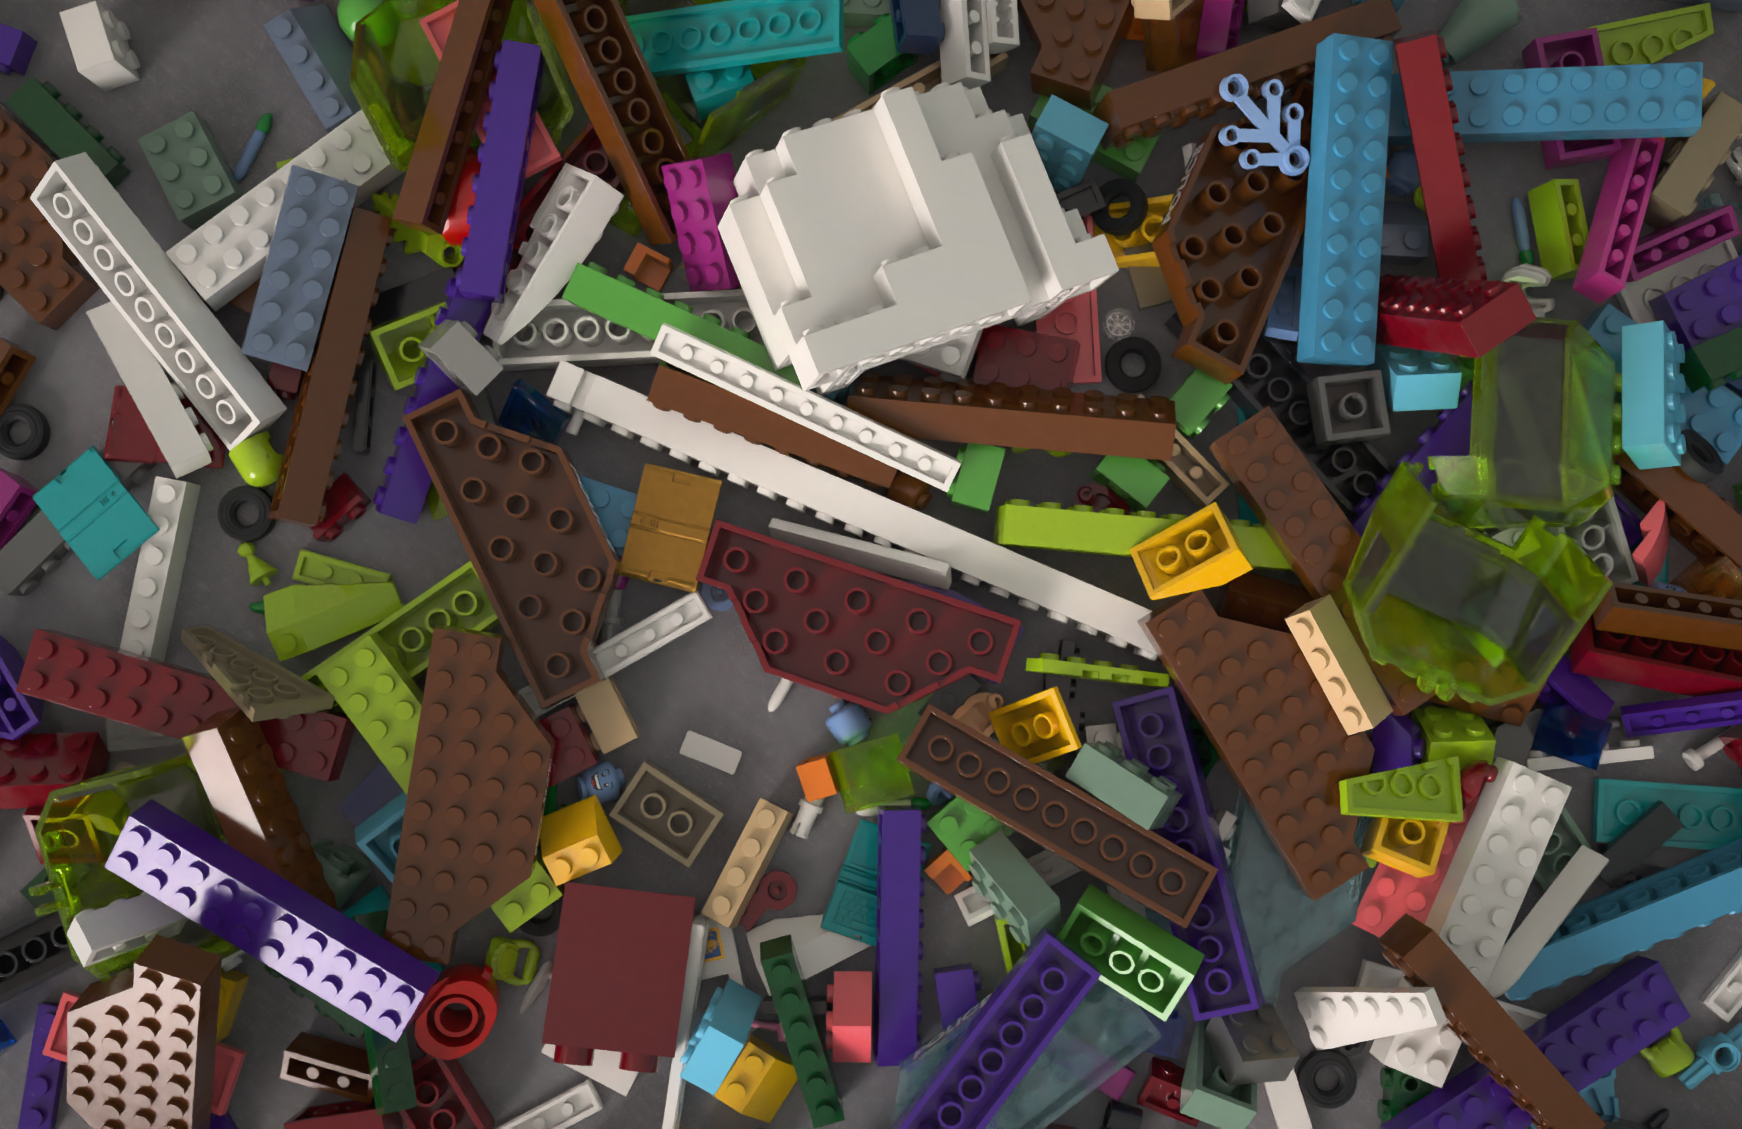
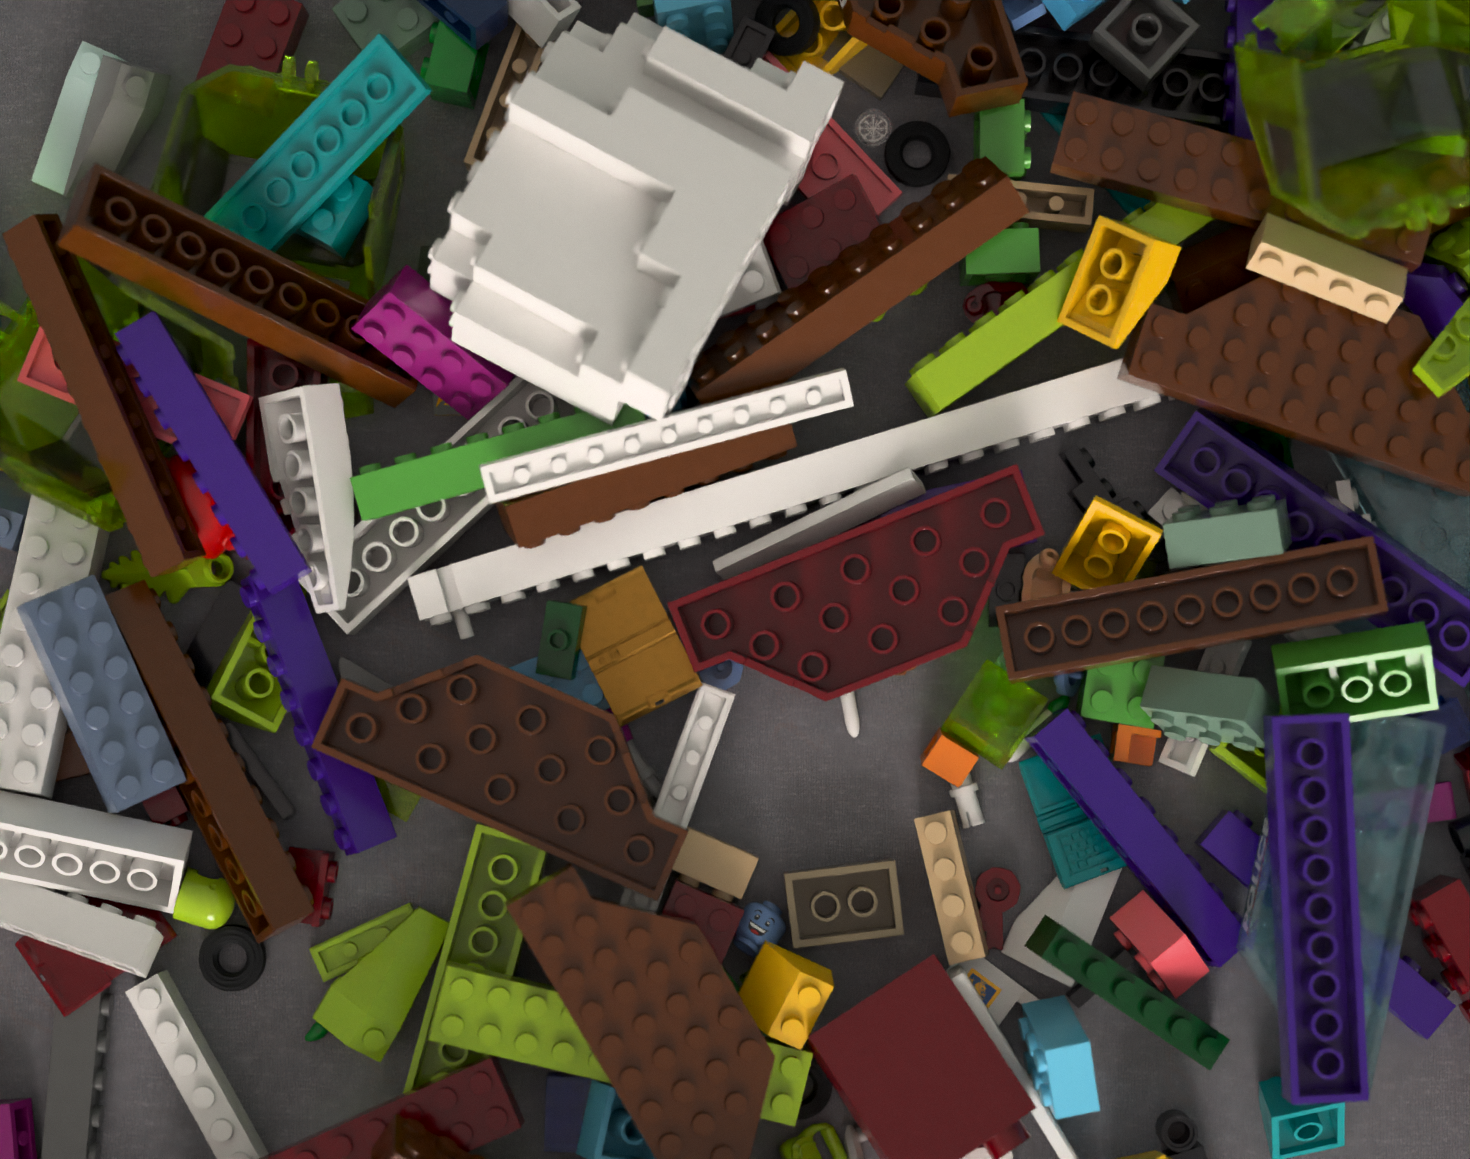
camera: 40 degrees left, 0 degrees up
(95, 513) = (99, 1070): teal piece -> none
(251, 680) = (377, 1094): dark tan wing -> none
(258, 570) = (286, 999): lime piece -> none
(461, 356) = (316, 648): light grey brick -> none
(532, 414) = (418, 649): tile -> none
(627, 484) = (561, 639): none -> dark green plate
(648, 267) = (408, 430): orange panel -> none
(710, 752) = (833, 818): white sticker -> none
(758, 1080) = (1127, 1072): yellow slope -> none
(772, 1026) = (1103, 1008): bright pink hand -> none
(848, 722) = (934, 686): medium blue head -> none
(909, 491) = (815, 434): dark orange head -> none
(976, 477) = (868, 371): bright green brick -> none
(1100, 671) = (1119, 452): lime wing -> none

